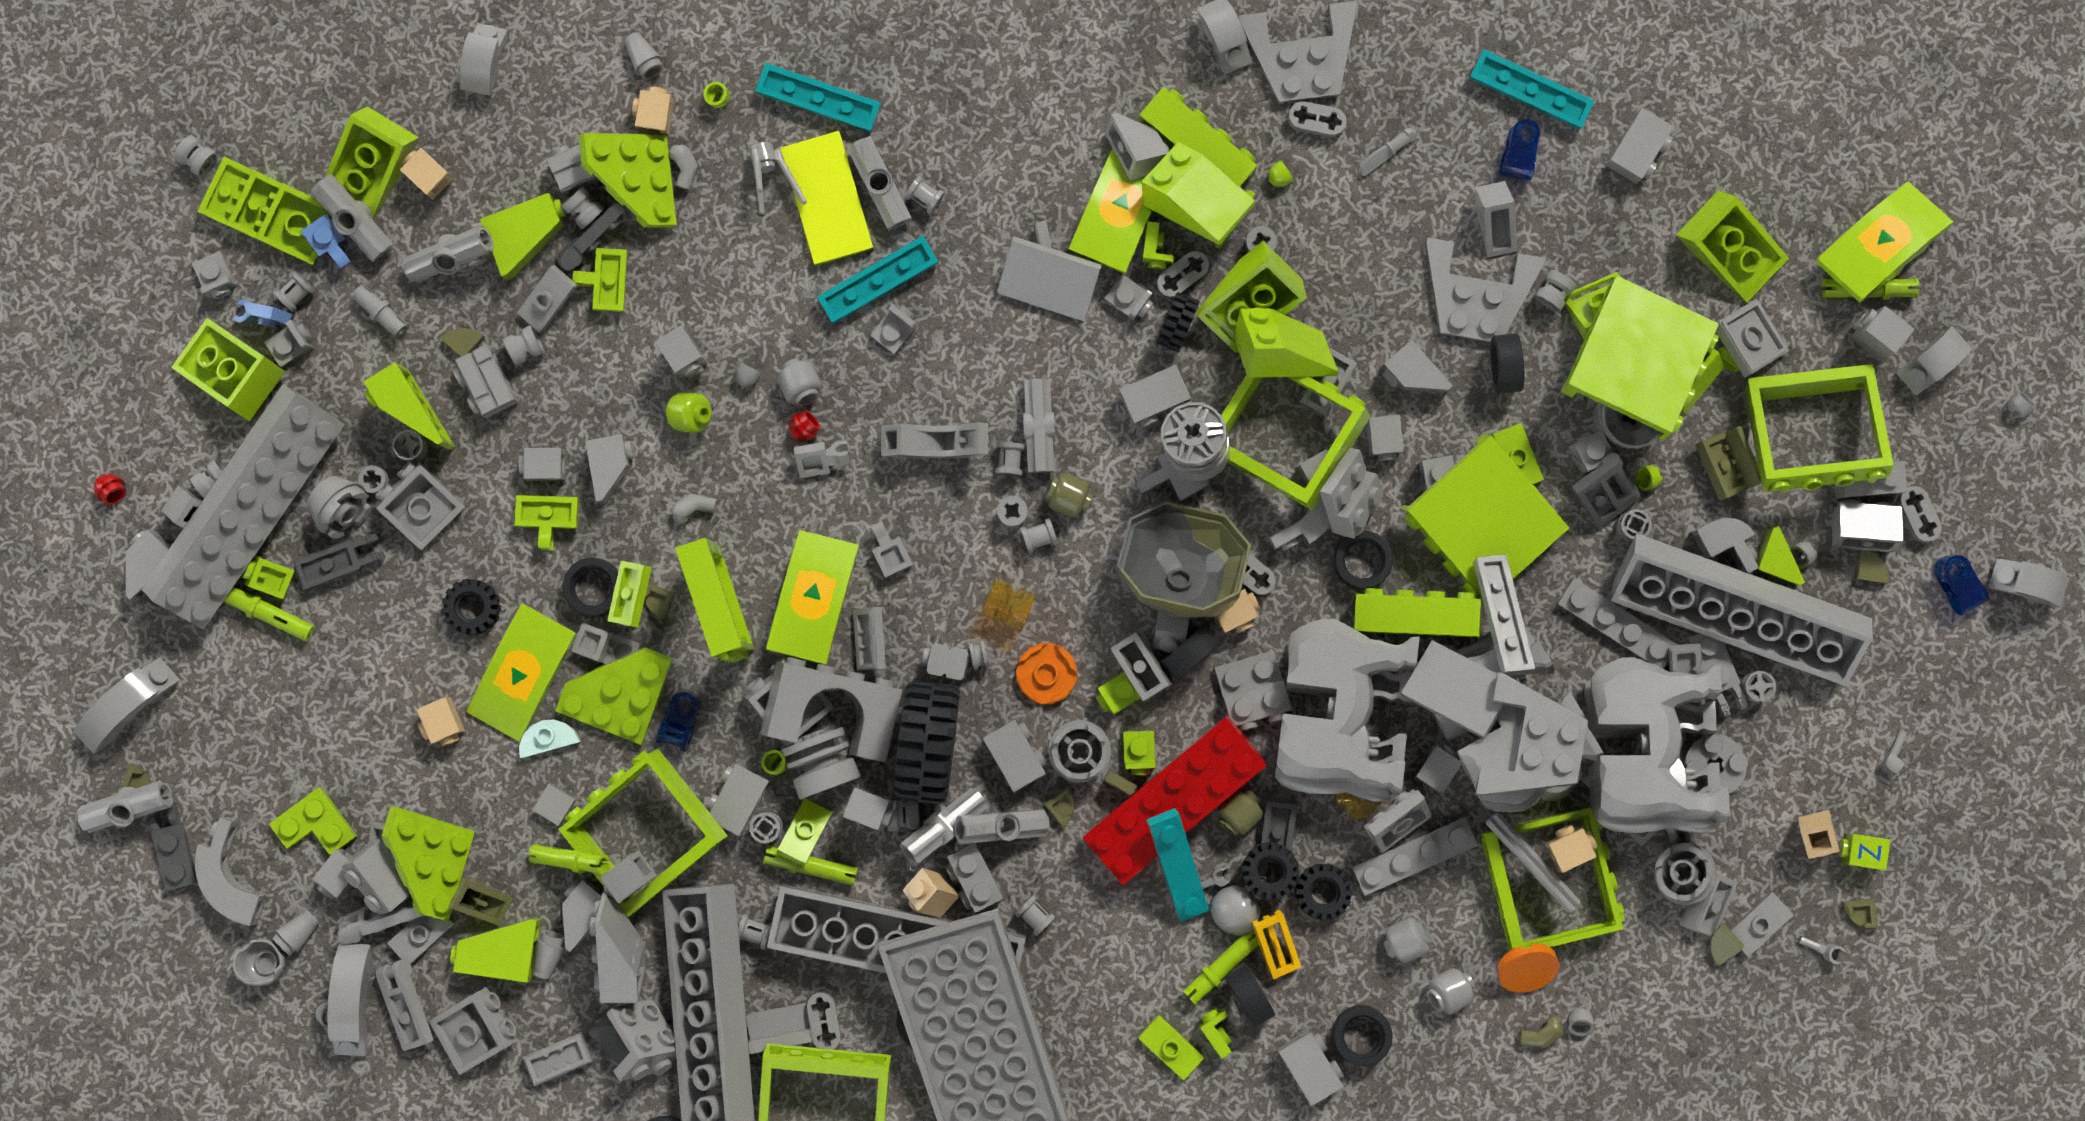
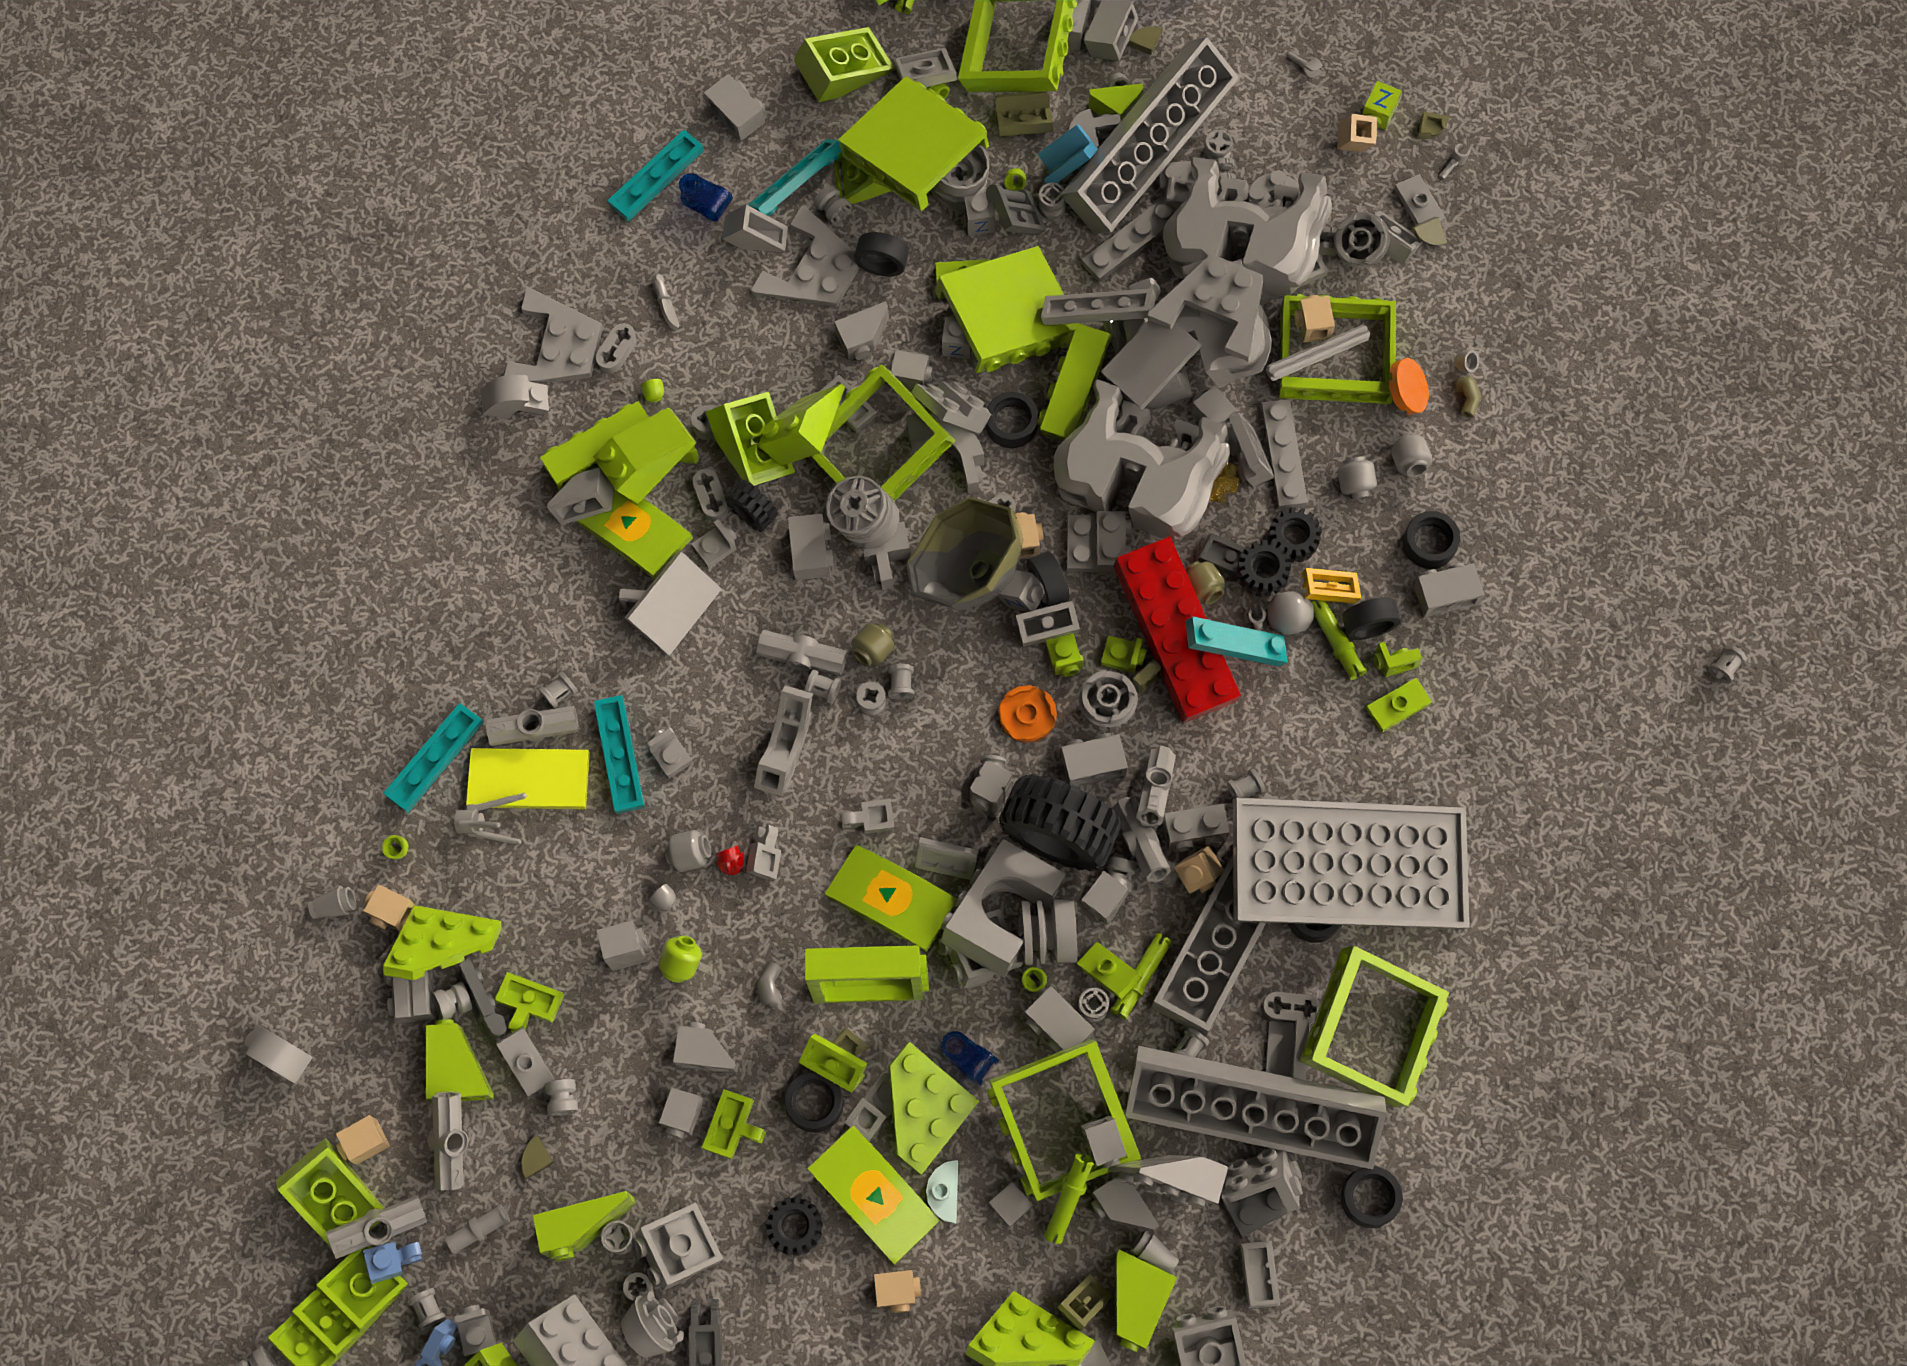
camera: 75 degrees left, 15 degrees down
(485, 382) = (582, 1145): light grey brick -> none
(687, 164) = (449, 894): light grey arm -> none
(1008, 604) = (953, 734): clear yellow wheel -> none
(1061, 806) = (1152, 736): olive tile -> none
(1153, 242) = (677, 511): lime bracket -> none
(1575, 240) = (821, 156): none -> teal plate
(1687, 527) = (1067, 154): none -> dark azure panel

